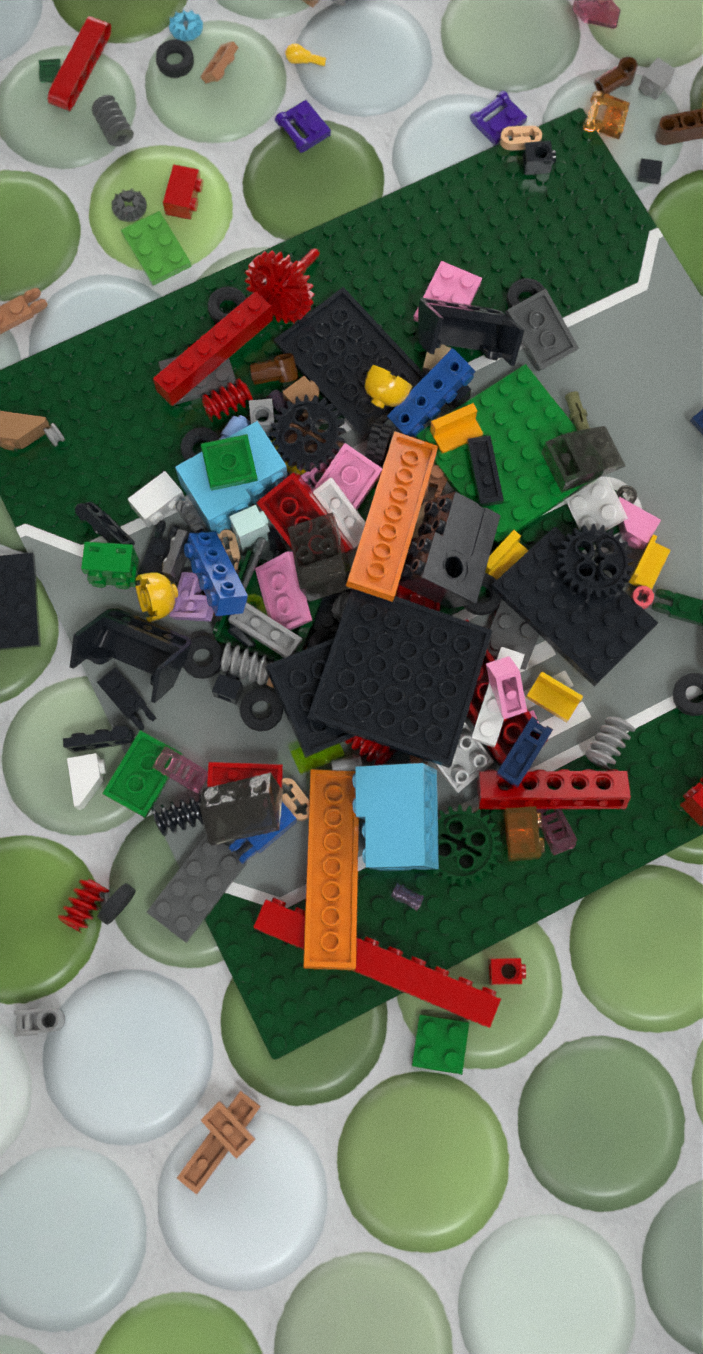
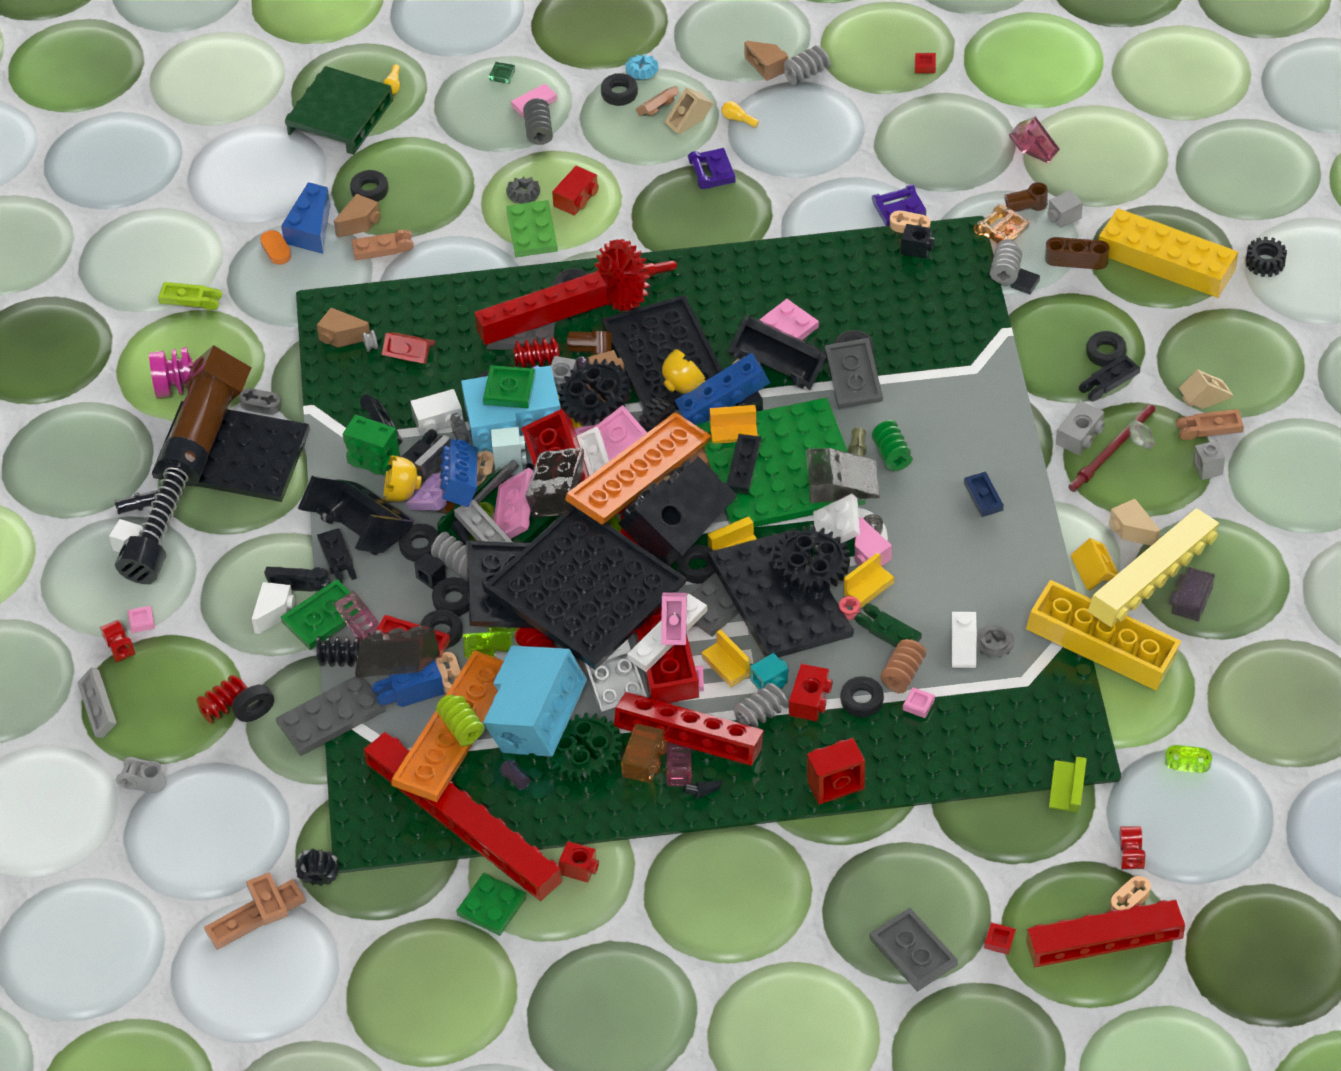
camera: 25 degrees right, 25 degrees down
(79, 63) = (530, 72): red beam -> none
(93, 429) = (406, 347): none -> panel
(98, 87) = (542, 92): none -> bright pink tile
(254, 66) = (688, 111): none -> tan slope
(260, 1072) = (317, 867): none -> black gear
(265, 736) = (445, 617): none -> black tyre
(342, 871) = (460, 719): none -> lime piece
(524, 752) = (670, 678): dark blue plate -> none
(589, 849) = (701, 789): none -> black bar
(602, 700) = (768, 671): none -> teal brick
(609, 402) = (892, 445): none -> green piece
(629, 157) = (1006, 262): none -> light grey piece
(642, 721) = (809, 692): none -> red brick

